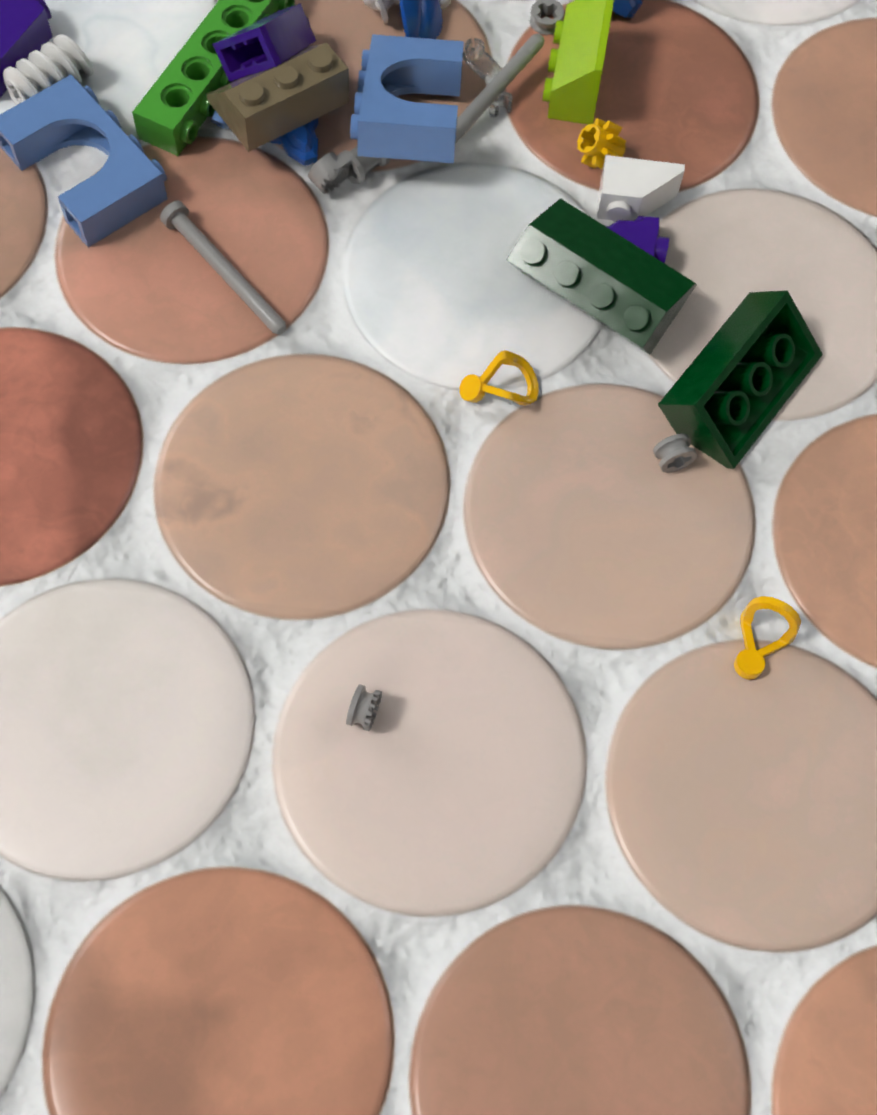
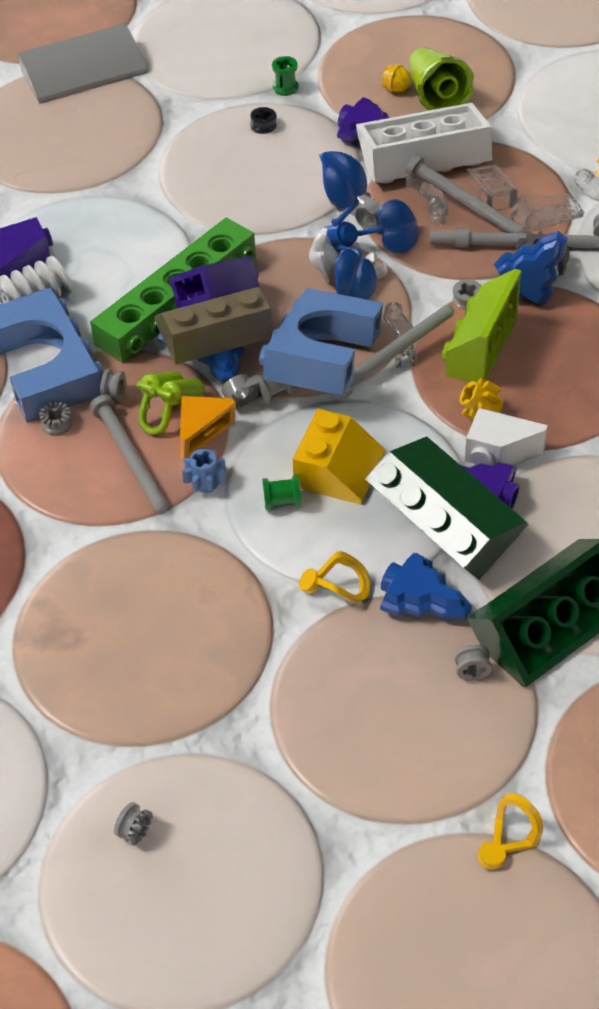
camera: 20 degrees right, 15 degrees down
(120, 229) = (55, 411): none -> light grey bush
(179, 186) = (113, 384): none -> light grey bush
(256, 185) = (170, 388): none -> lime piece
(296, 215) = (203, 421): none -> light orange slope
(317, 276) = (204, 470): none -> medium blue gear
(412, 288) = (282, 492): none -> green bush
(462, 237) = (336, 457): none -> yellow slope
(598, 380) = (421, 590): none -> blue rock

